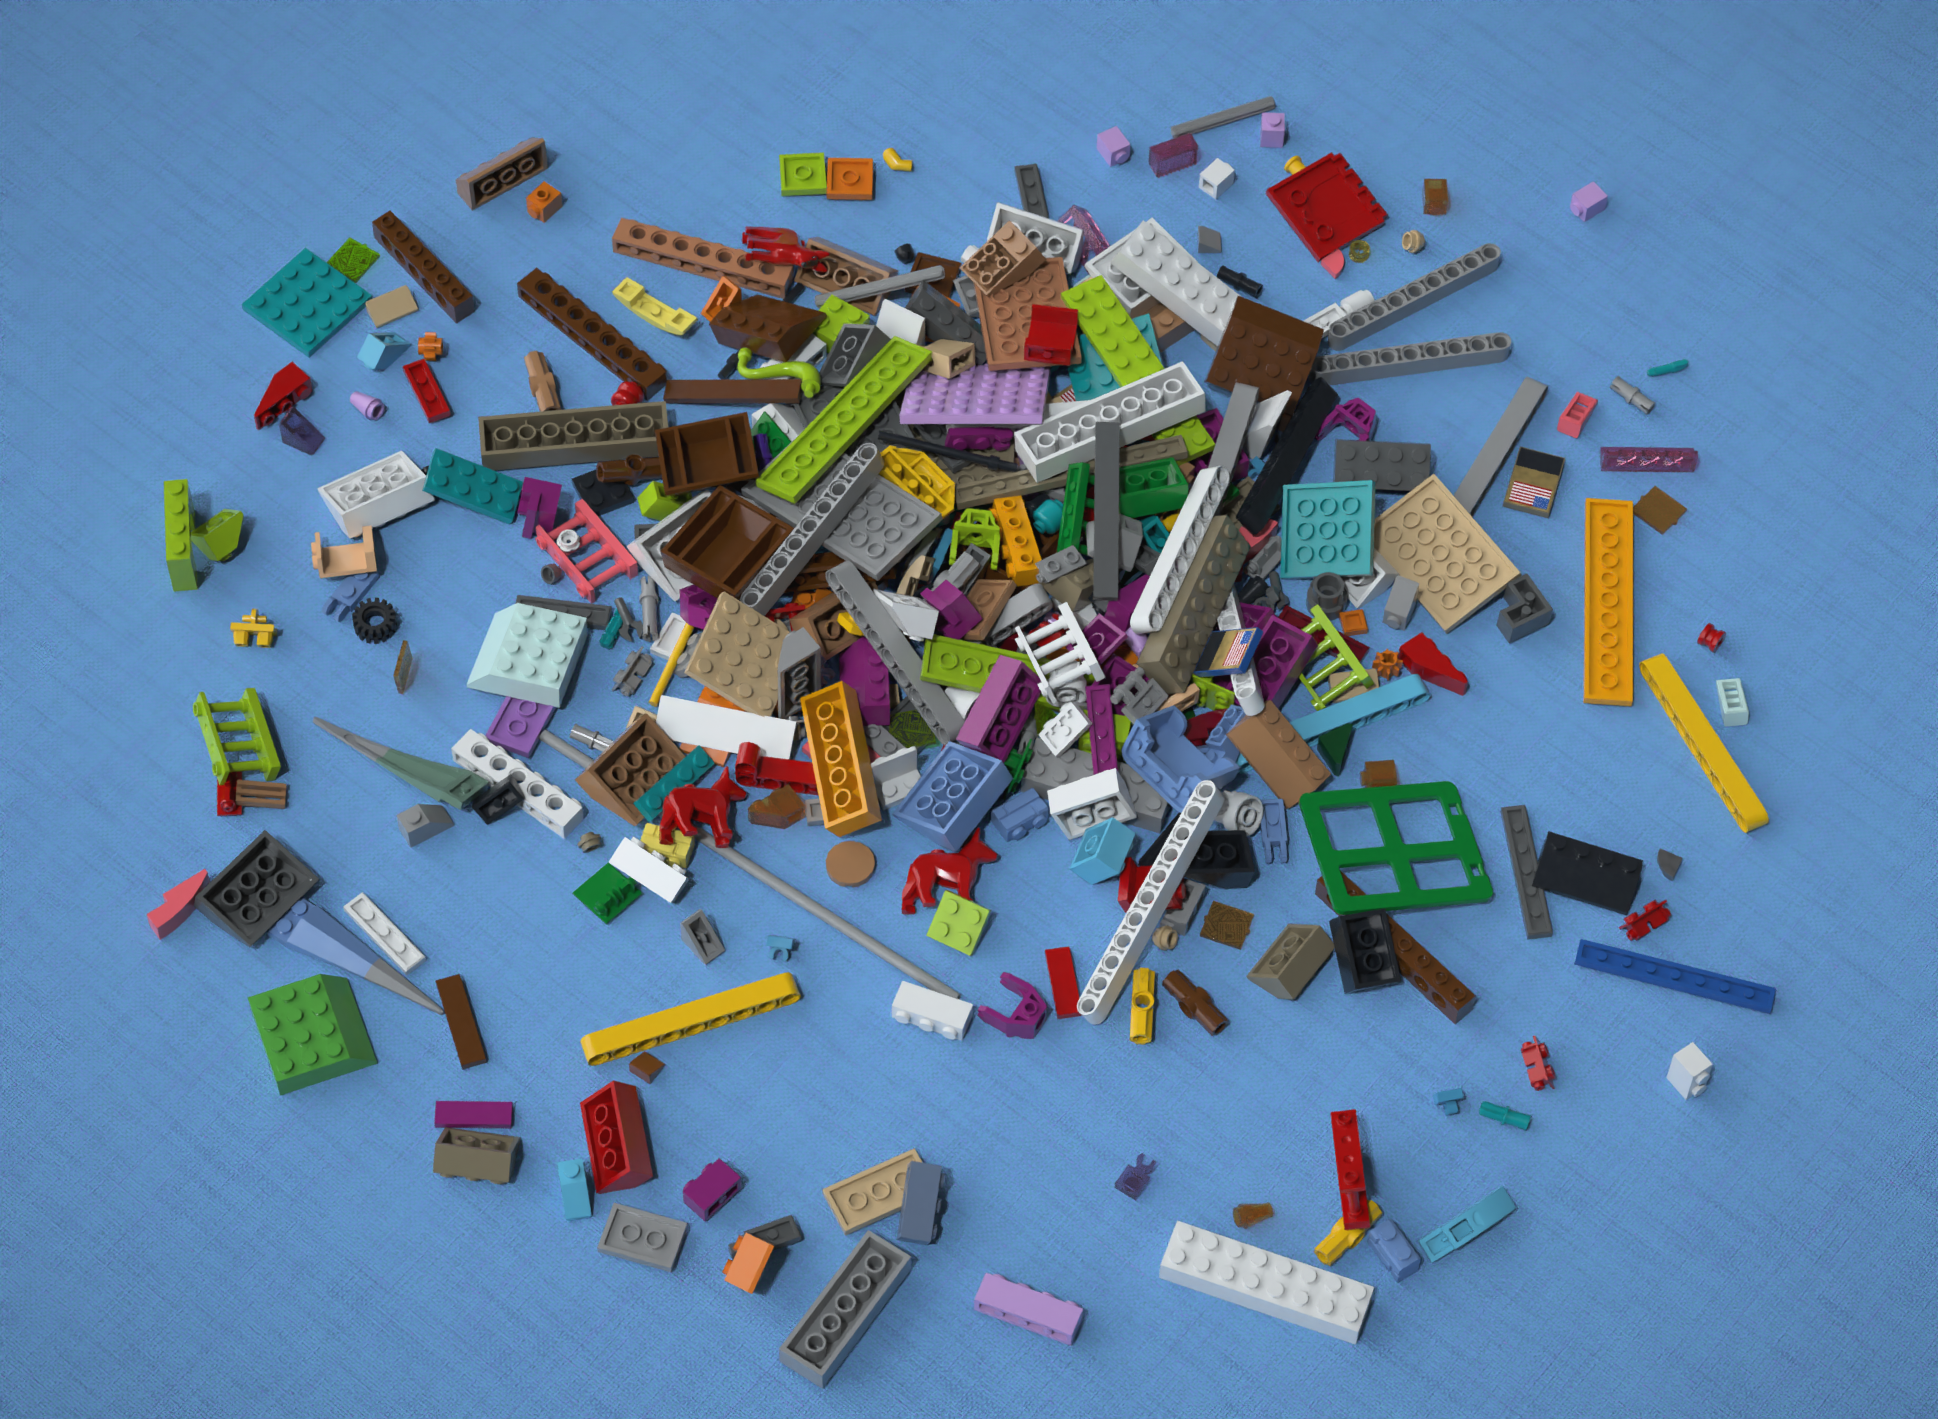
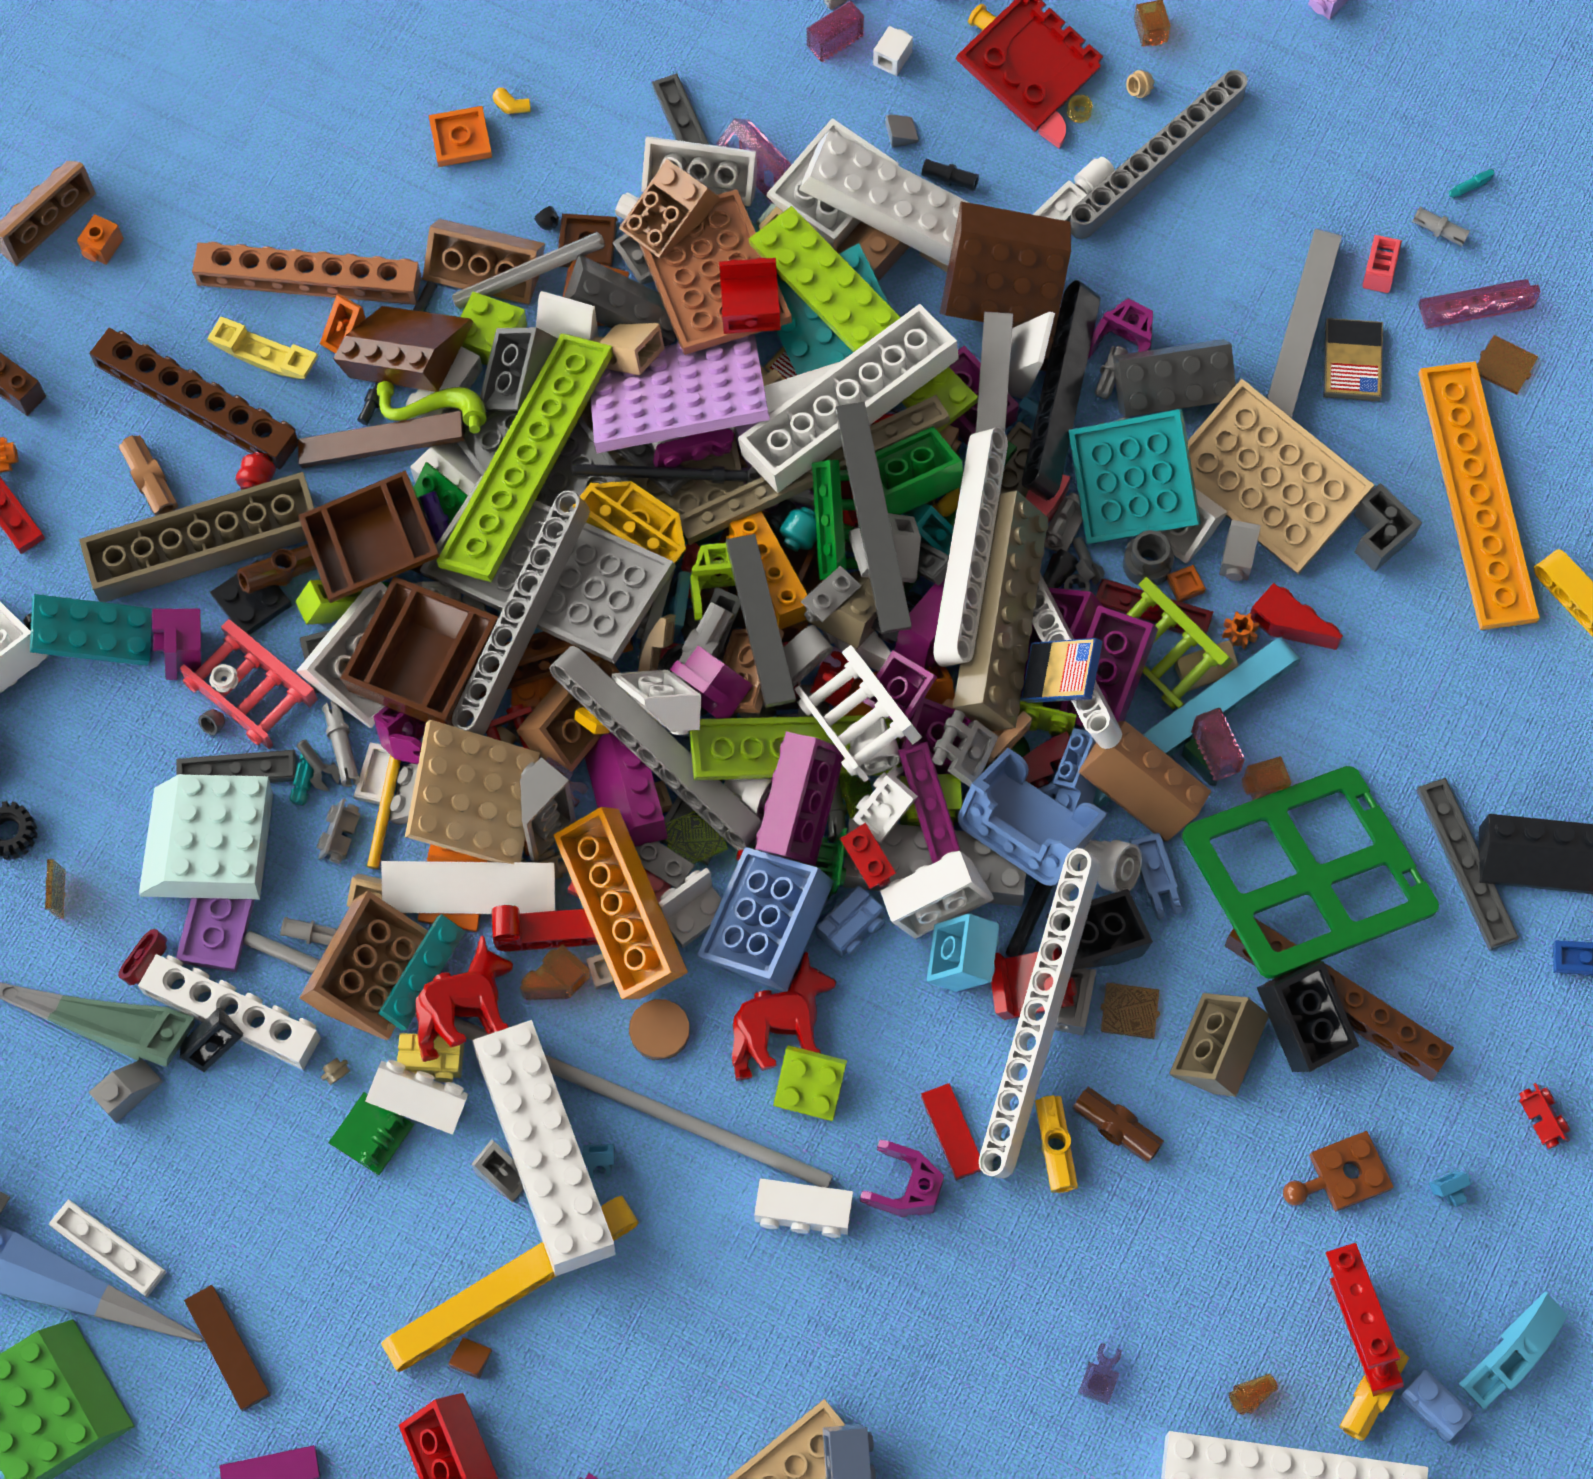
camera: 10 degrees left, 10 degrees up
(458, 730) = (141, 957): none -> dark red plate
(739, 923) = (544, 1148): none -> white brick
(784, 246) = (402, 241): red animal -> none
(802, 174) = (403, 141): lime plate -> none
(999, 571) = (760, 621): none -> dark grey tile
(1043, 763) = (868, 856): none -> red hinge
(1113, 146) = (762, 34): lavender brick -> none
(1136, 641) = (946, 676): lavender cone -> none
(1165, 937) = (1062, 1046): tan plate -> none
(1328, 458) = (1107, 378): none -> light grey axle
(1343, 738) = (1217, 744): none -> clear pink brick
(1360, 1084) = (1341, 1189): none -> dark orange plate
(1420, 357) = (1182, 225): light grey beam -> none
(1504, 1115) = (1523, 1192): teal axle -> none

